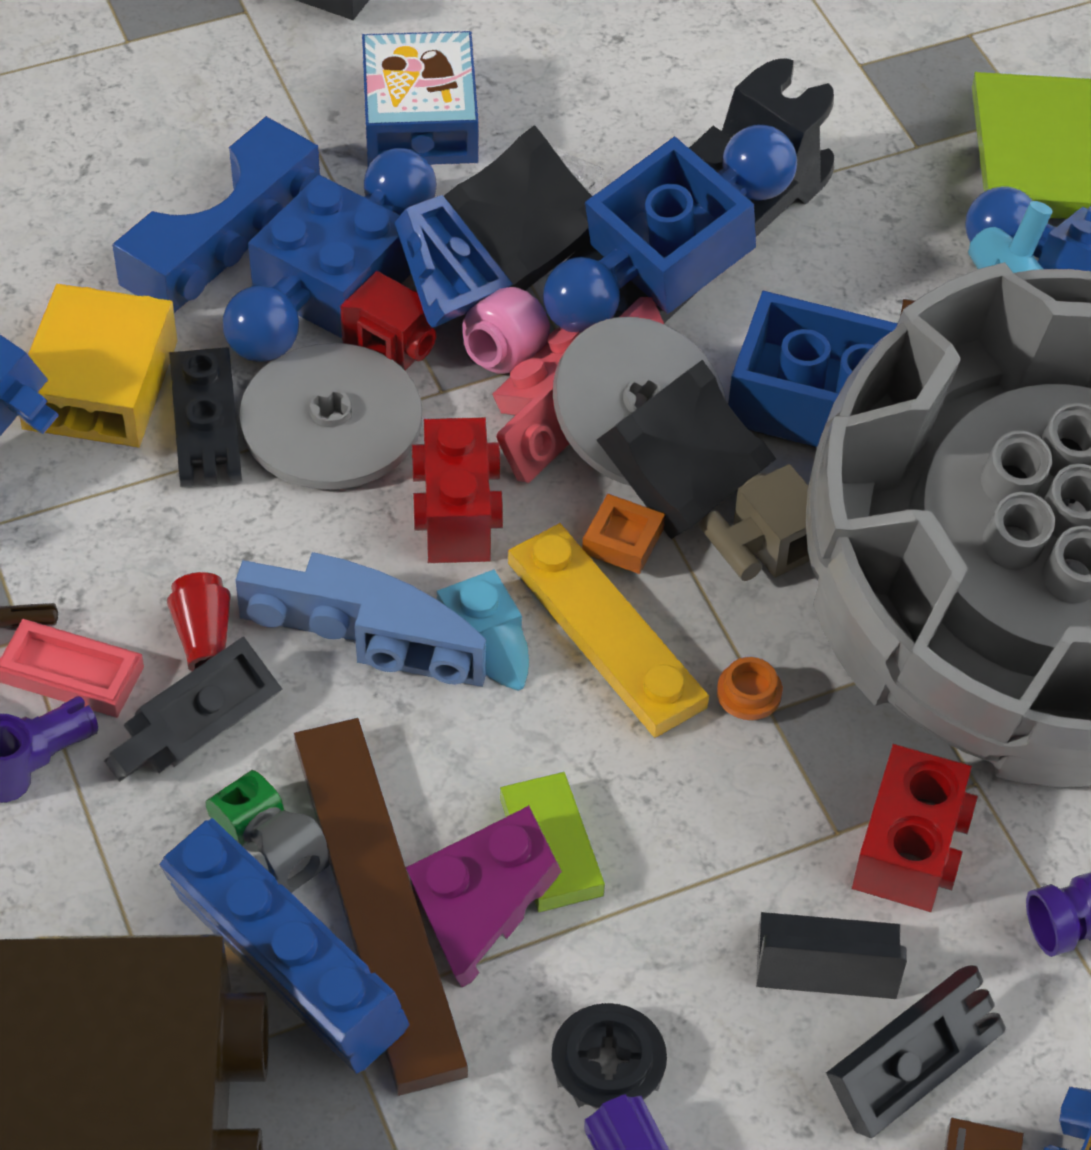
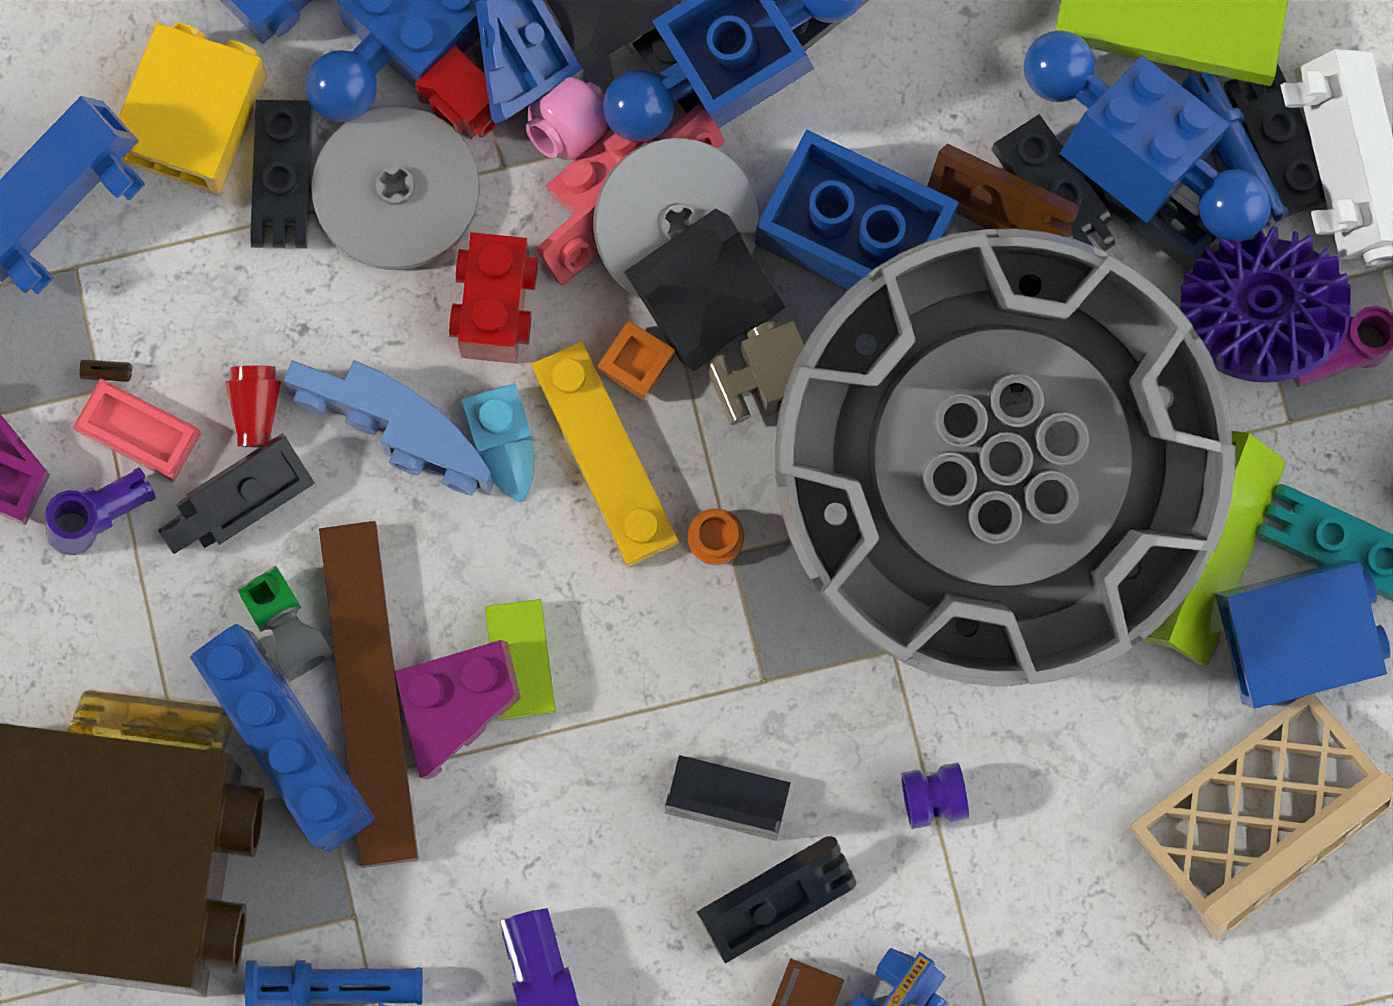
camera: 10 degrees right, 25 degrees up
(583, 1038) = (515, 842): black gear -> none
(911, 827) = (811, 692): red brick -> none
(996, 246) = (1045, 128): medium azure piece -> none

